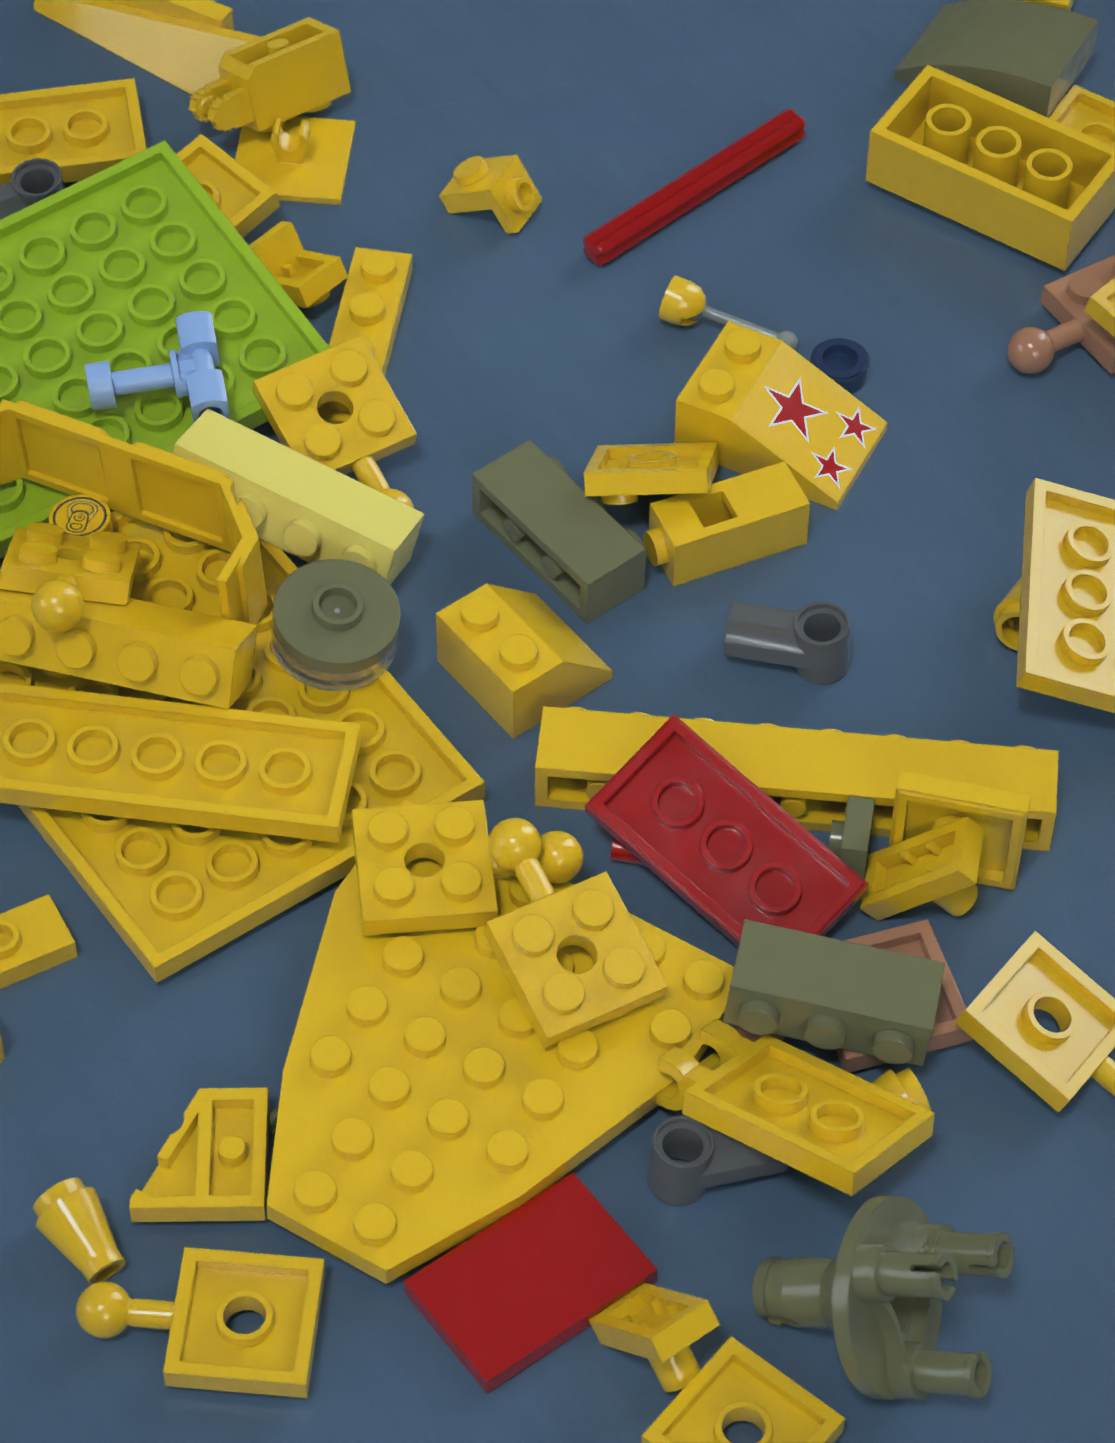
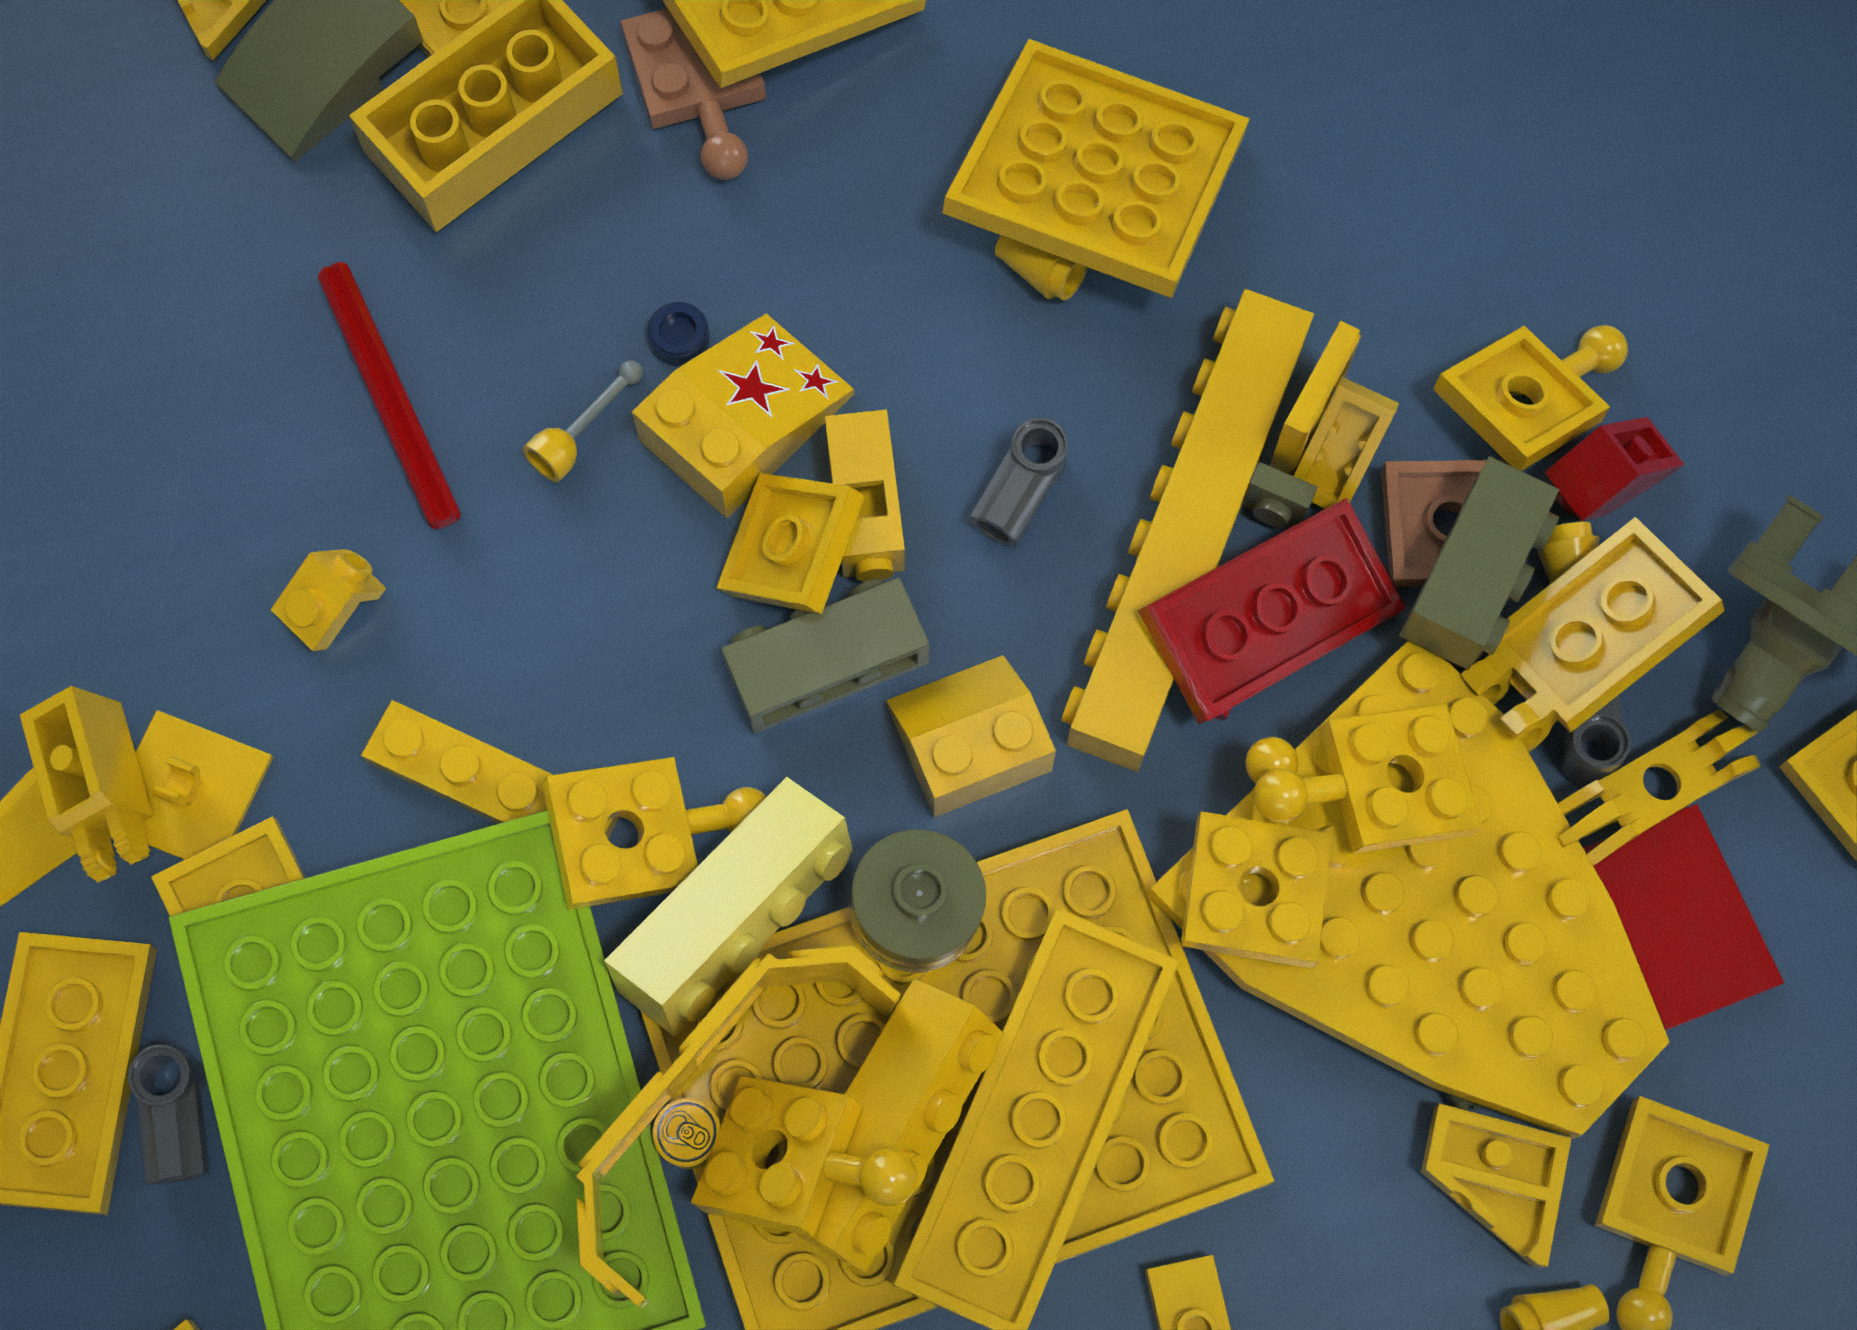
camera: 75 degrees left, 20 degrees up
(190, 371) = (533, 970): light blue bar -> none
(300, 272) = (379, 824): yellow bracket -> none
(658, 1327) = (1778, 819): yellow tile -> none
(691, 1260) = (1635, 807): none -> yellow piece
(1009, 1126) = (1612, 468): none -> red slope

